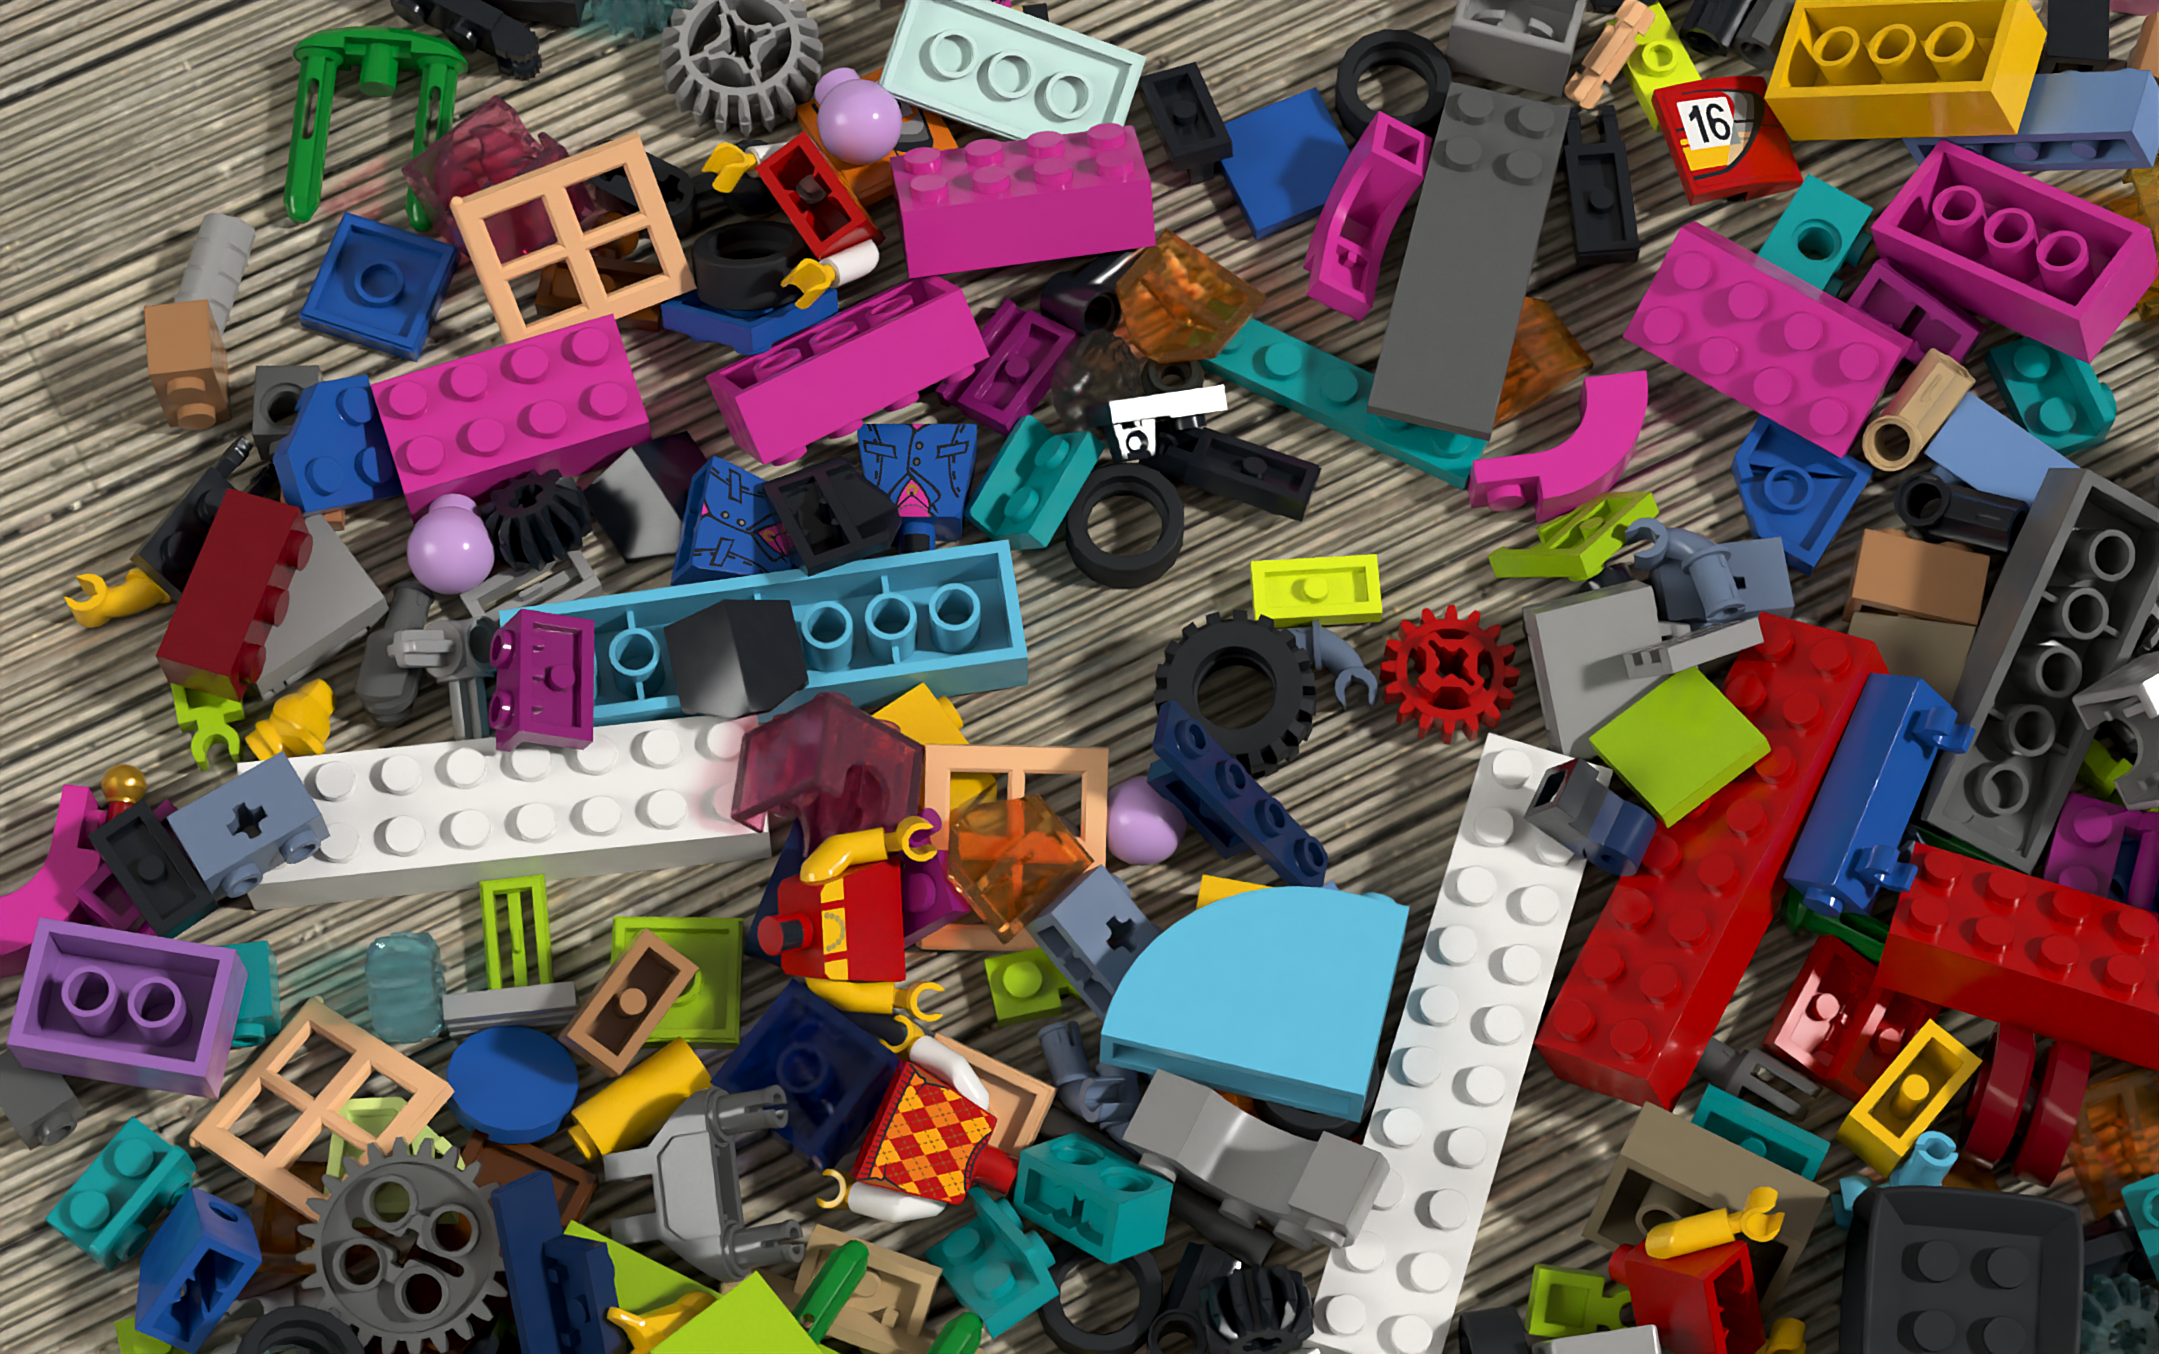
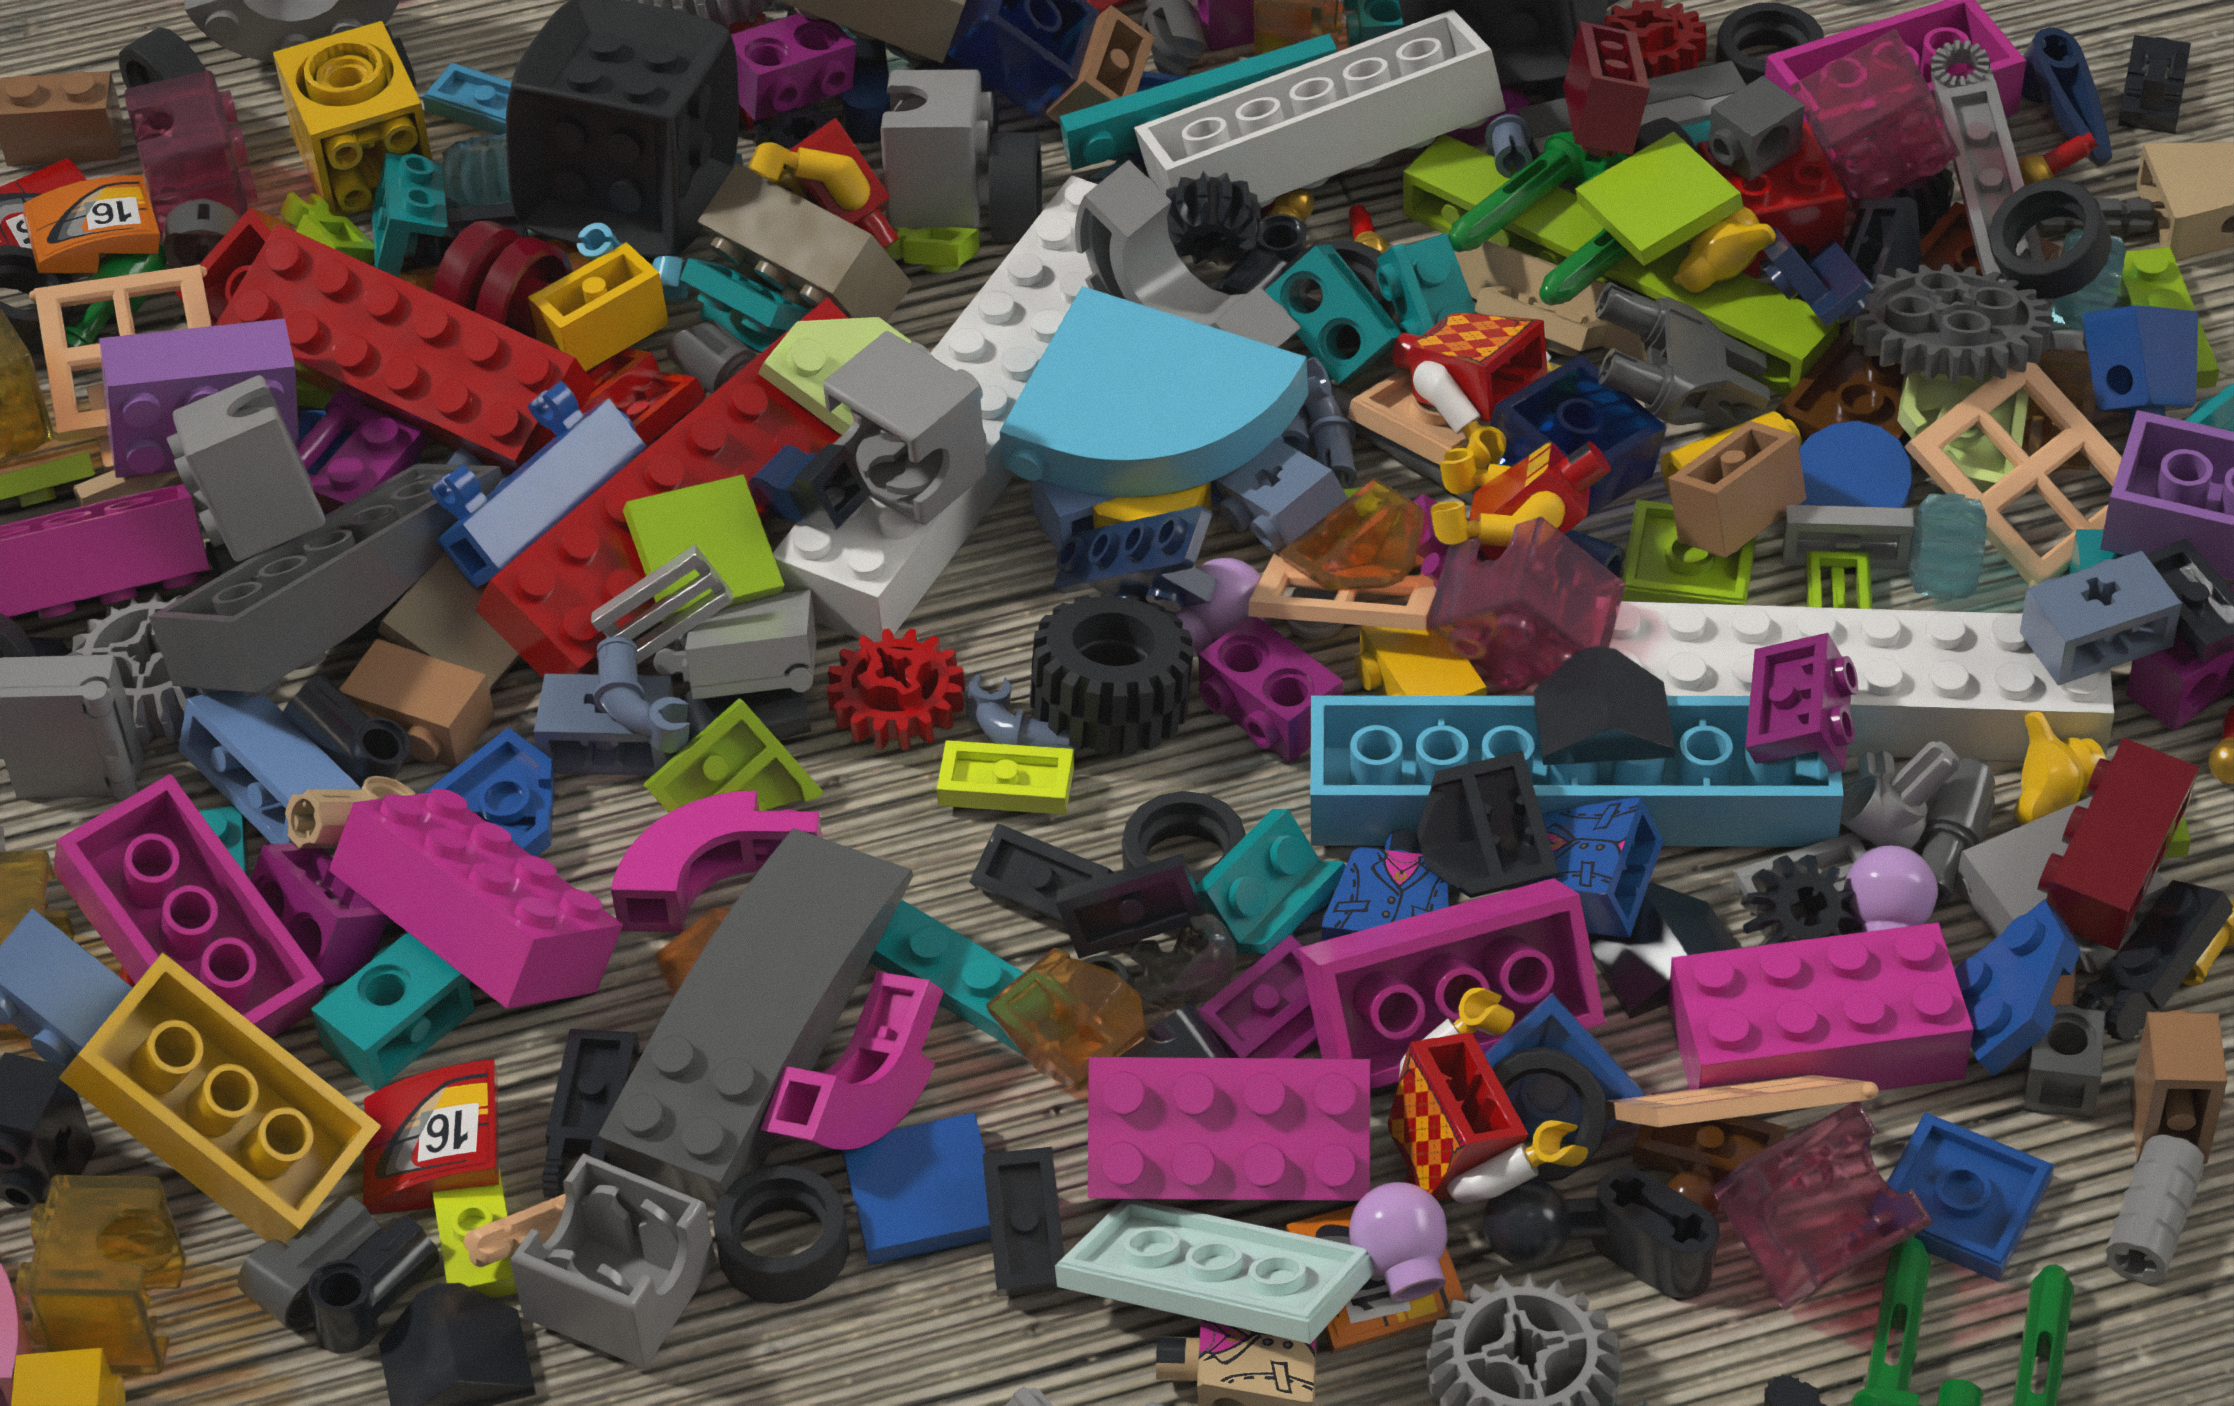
camera: 165 degrees left, 20 degrees down
(1090, 714) = (1265, 686): none -> magenta brick
(1502, 868) = (913, 425): none -> light grey piece
(1599, 986) = (814, 353): none -> yellowish green plate

